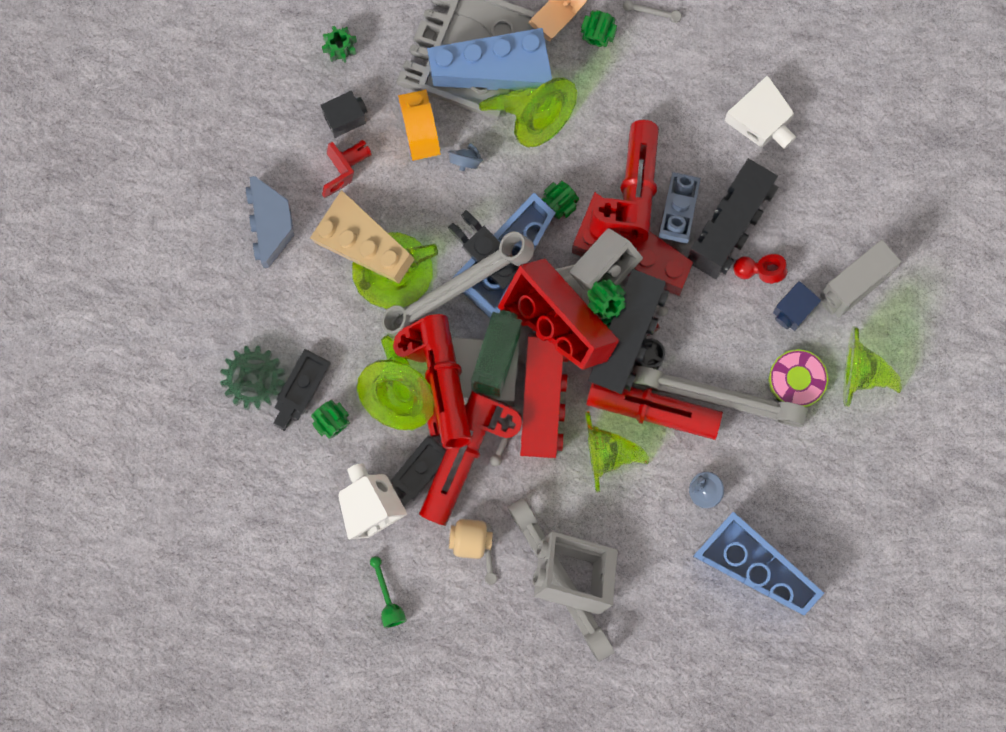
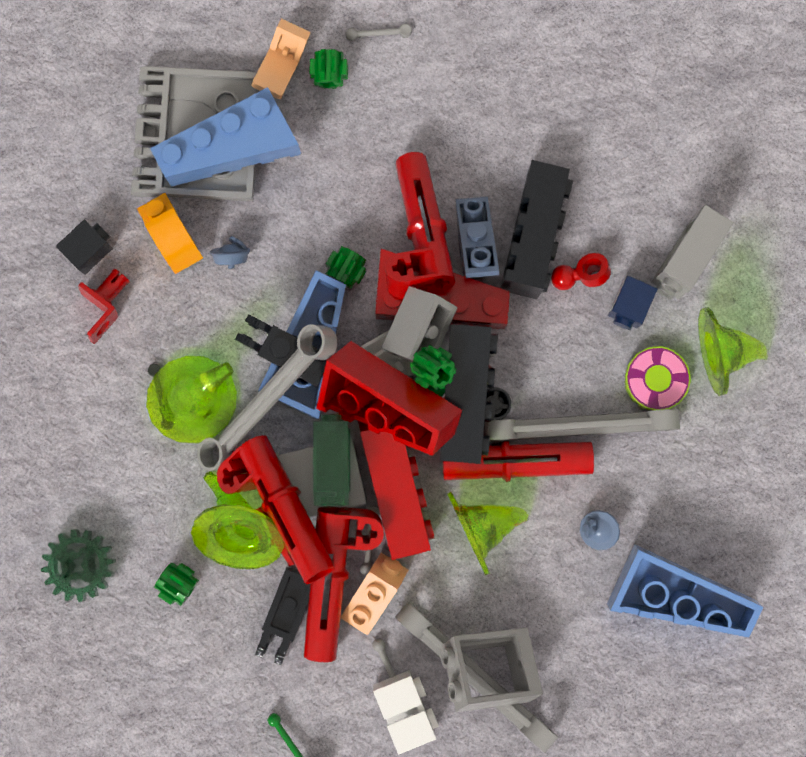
camera: 20 degrees left, 5 degrees up
(270, 220) = (43, 389): sand blue slope -> none
(300, 388) = (133, 559): black hinge -> none
(345, 38) = (47, 174): green gear -> none
(359, 238) = (146, 379): tan wing -> none
(369, 503) = (246, 663): white torso -> none
(470, 538) = (366, 665): tan head -> none
(490, 588) = (405, 712): none -> white piece
(495, 482) = (374, 593): none -> light nougat bracket
(538, 111) = (291, 178): clear neon green piece -> none
(763, 115) = (532, 108): white torso -> none

